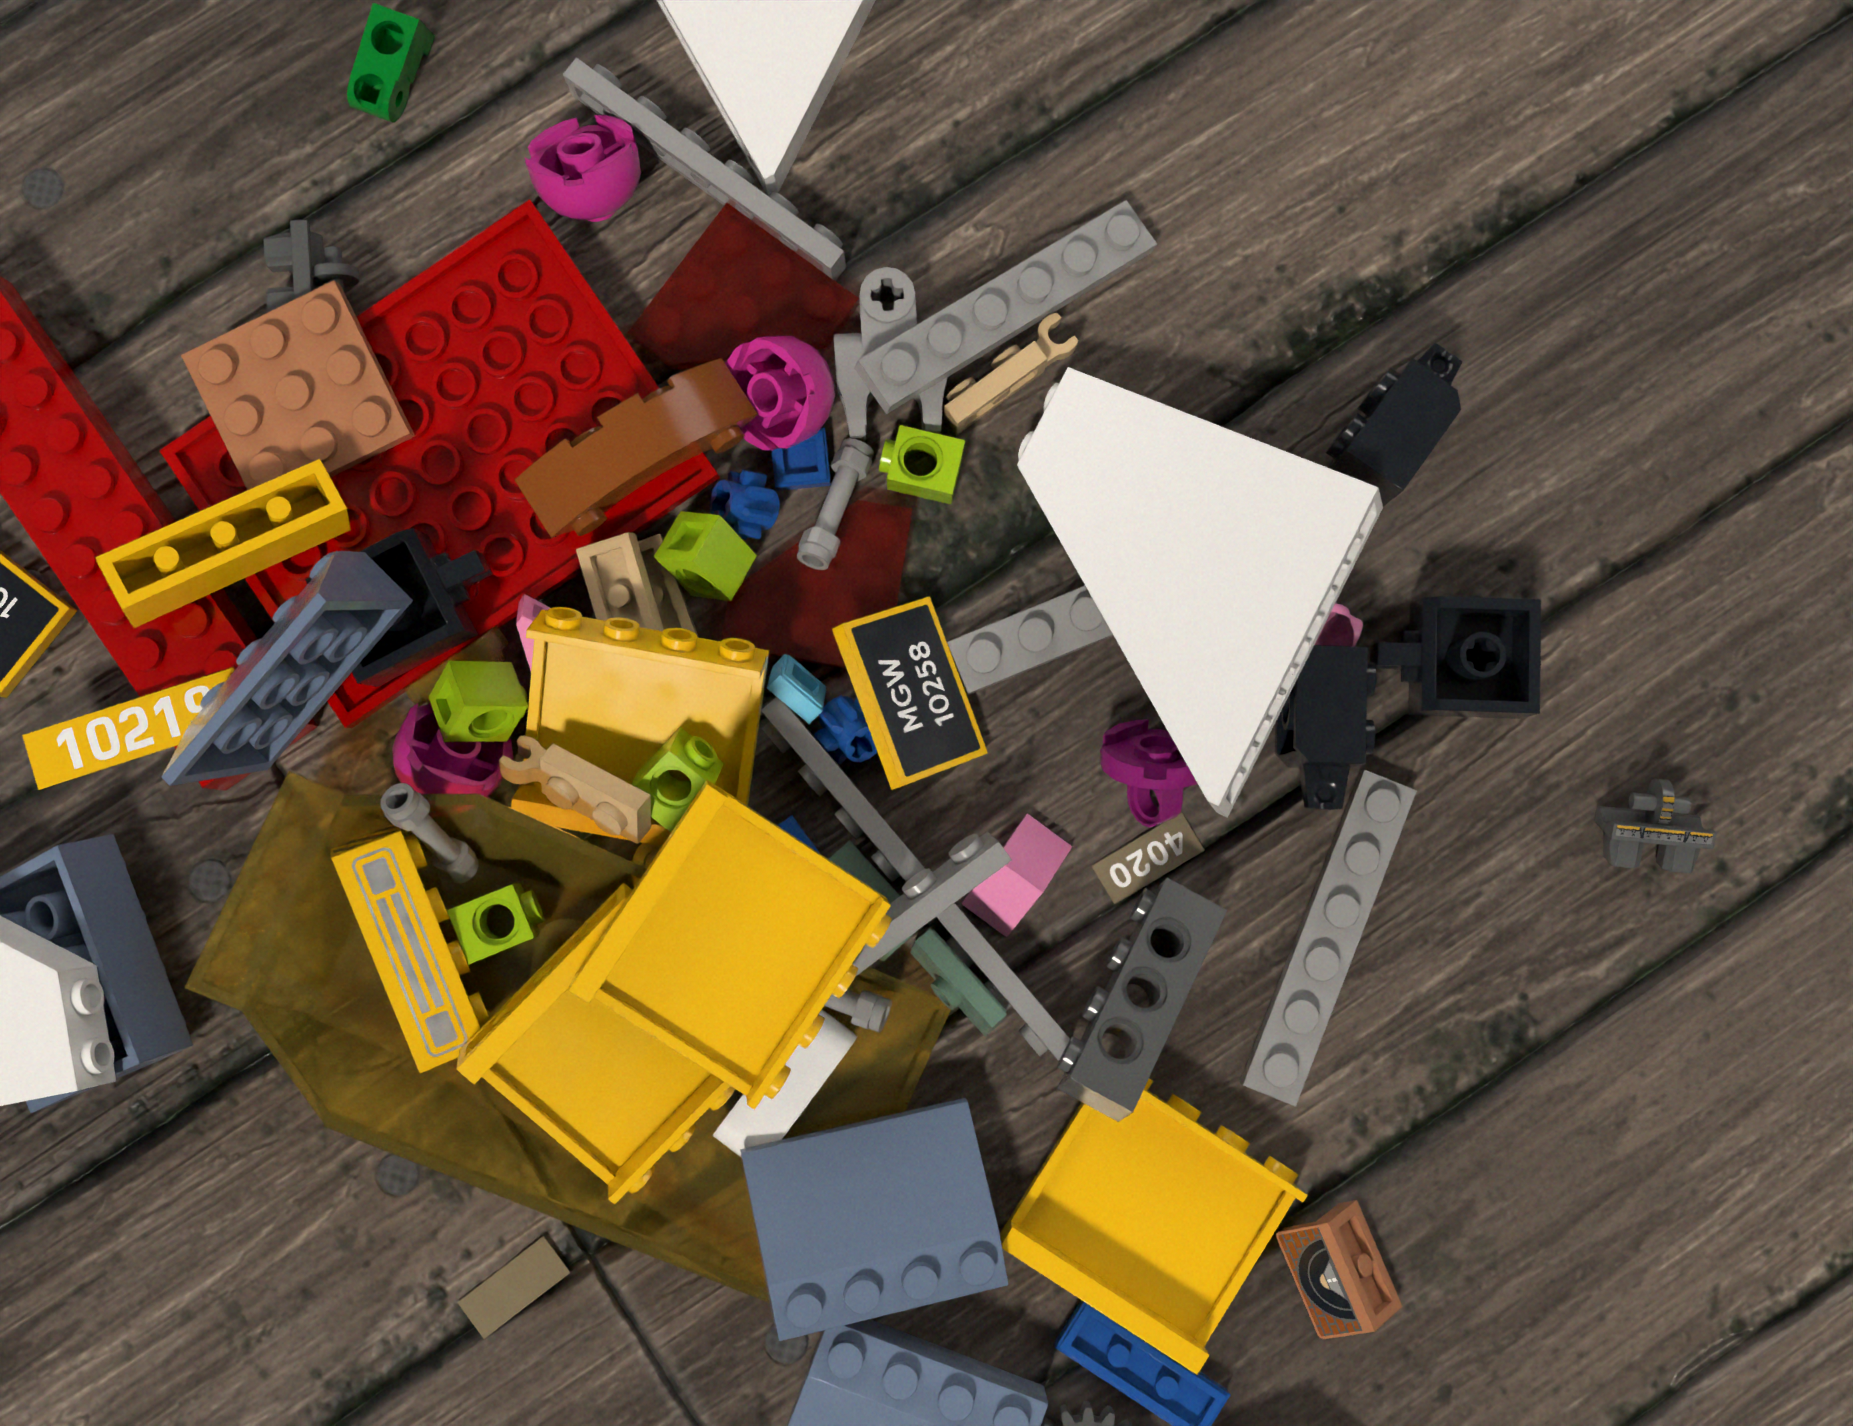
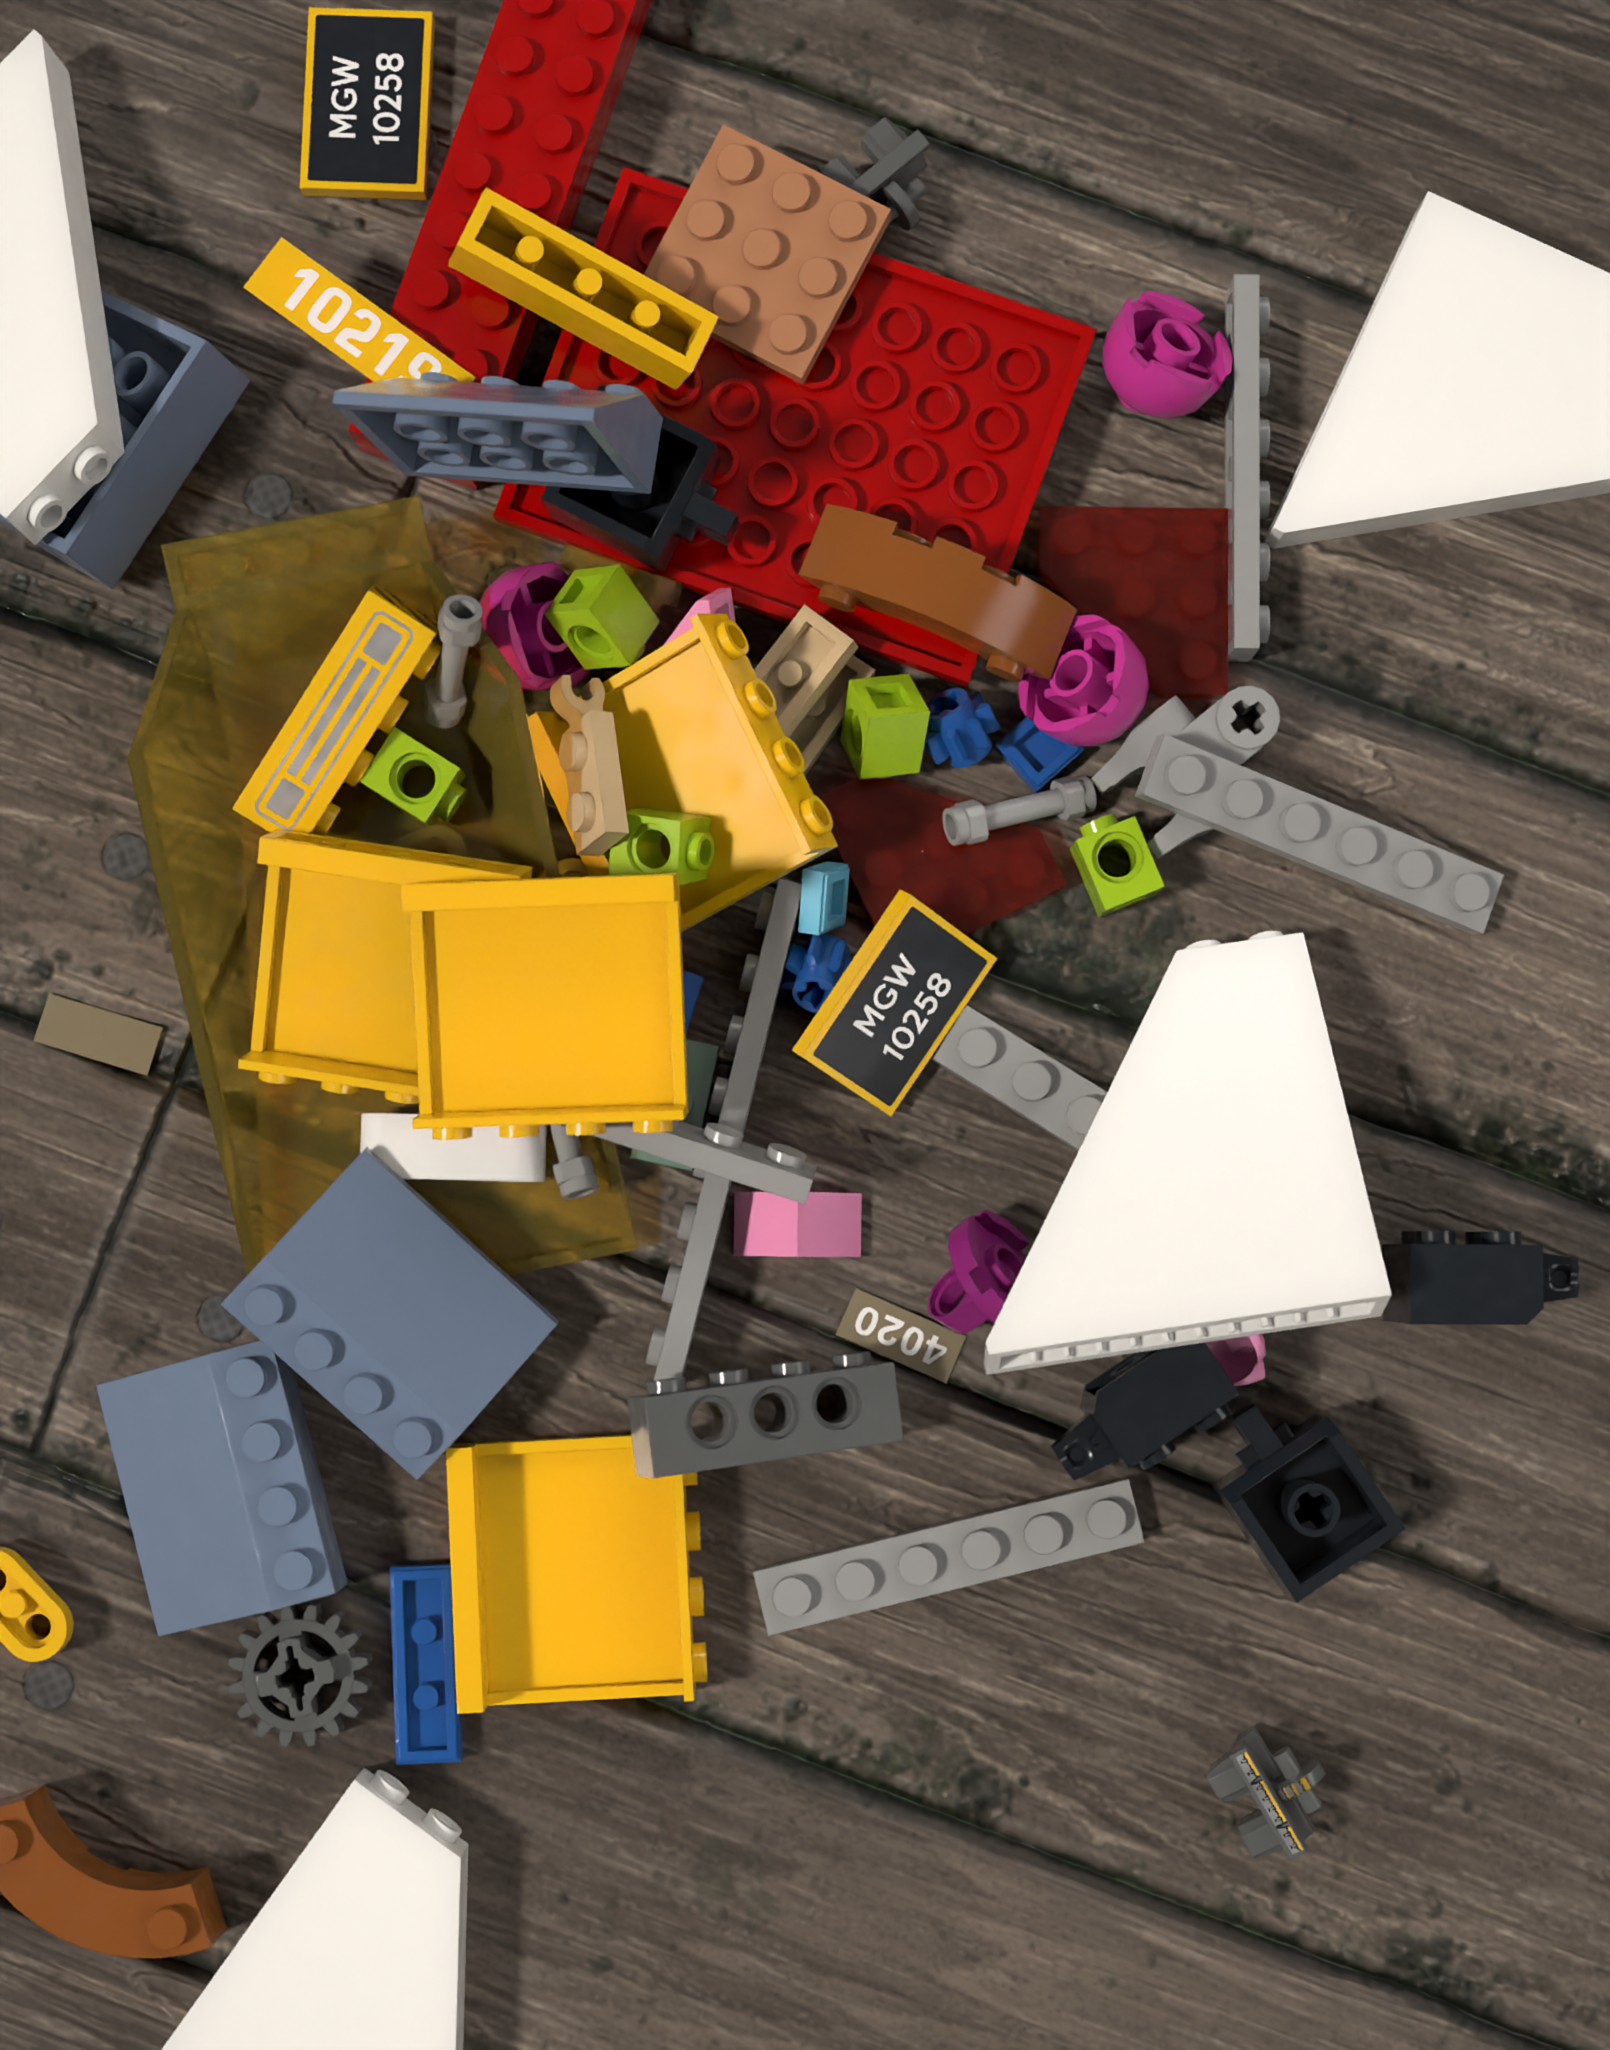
camera: 55 degrees right, 0 degrees up
(387, 62) = (1128, 108): green leg -> none
(956, 983) = (657, 1238): sand green plate -> none
(1011, 372) = (1262, 885): tan plate -> none
(1340, 1272) = (644, 1785): panel -> none

